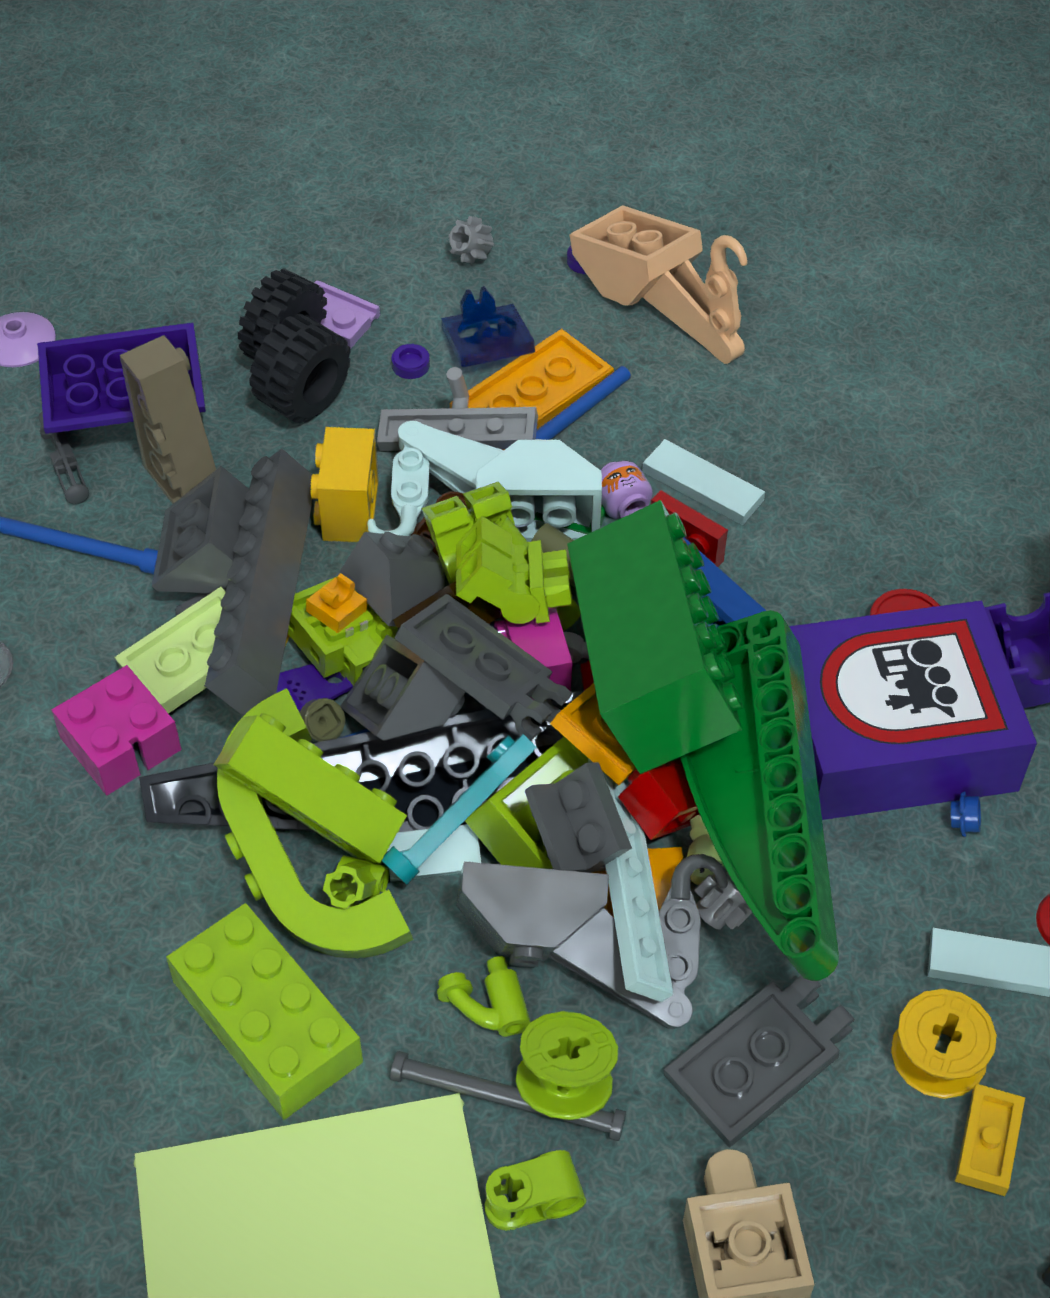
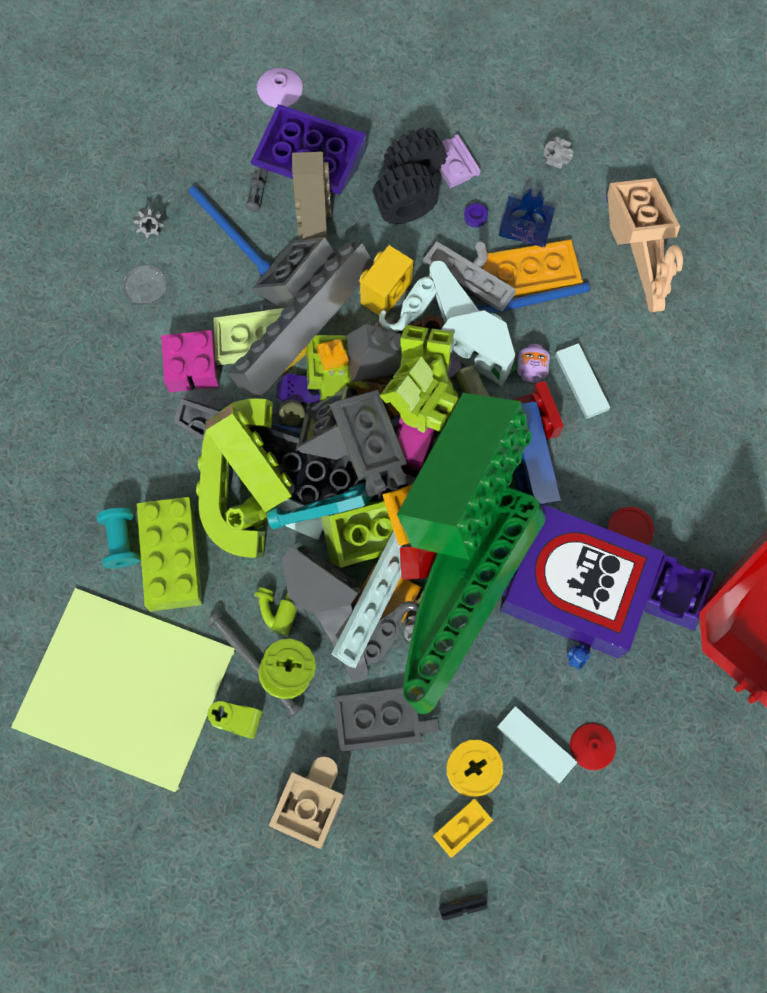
camera: 30 degrees right, 20 degrees up
(144, 1009) = (117, 537): none -> teal piece
(579, 820) = (363, 553): dark grey bracket -> none

